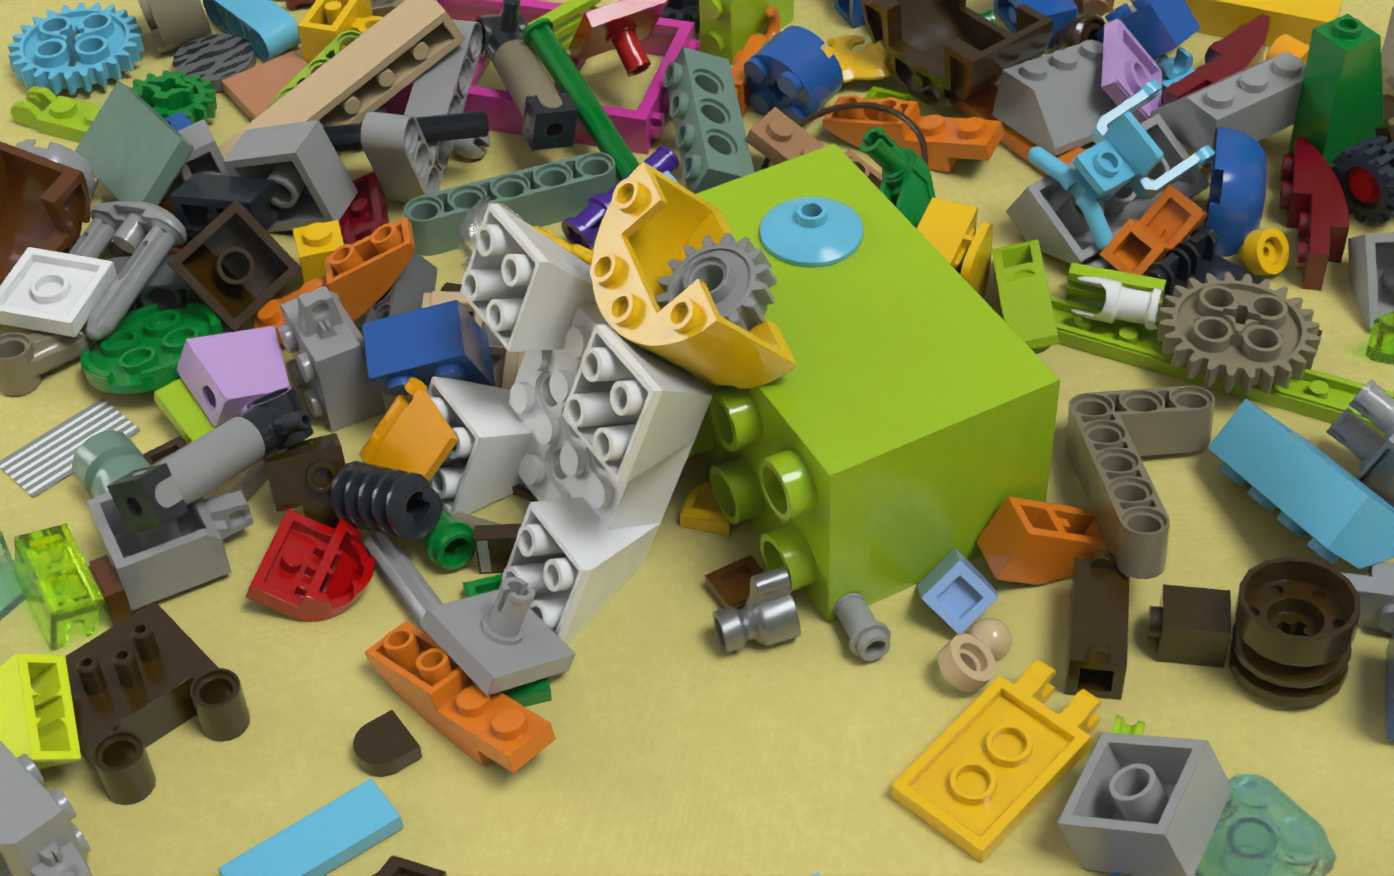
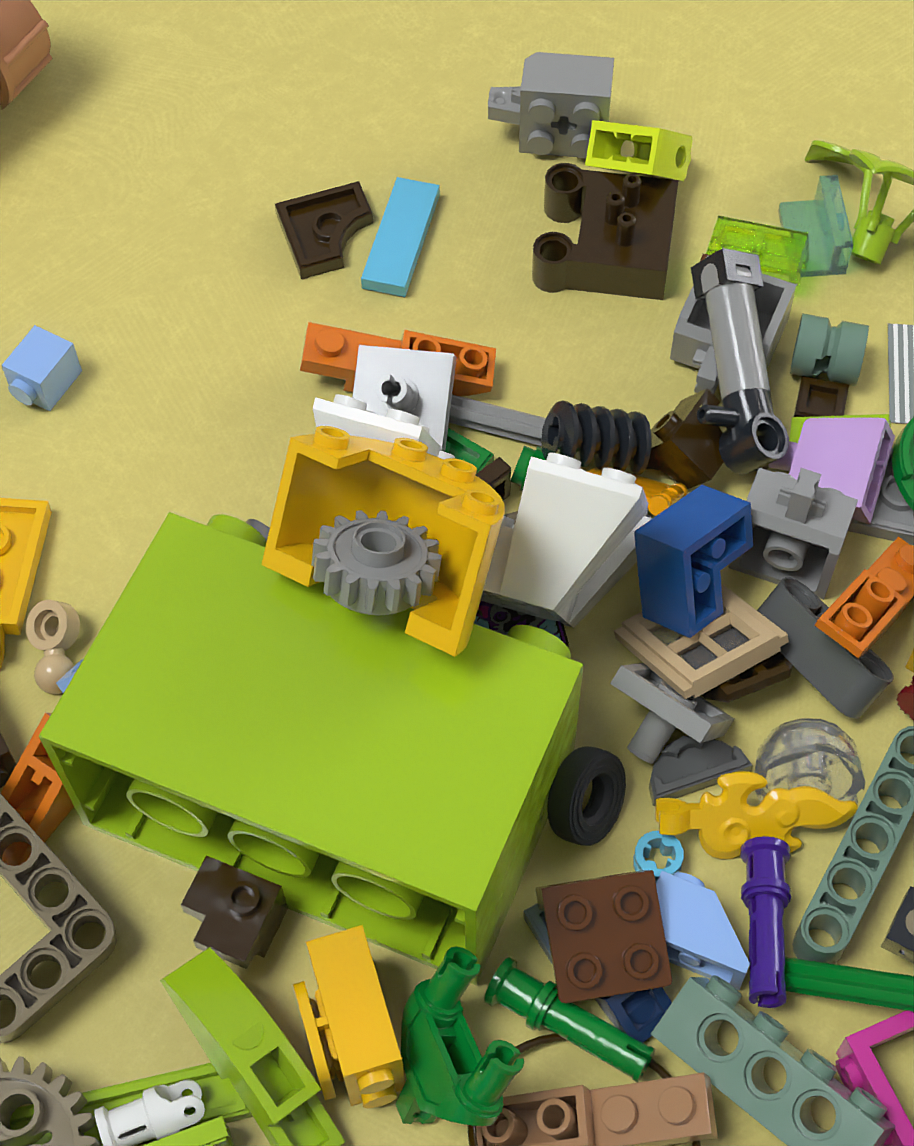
camera: 140 degrees right, 15 degrees up
(312, 569) = (611, 377): red slope -> none
(385, 746) = (424, 315): dark brown tile -> none
(811, 232) = (401, 786): medium azure dish -> none

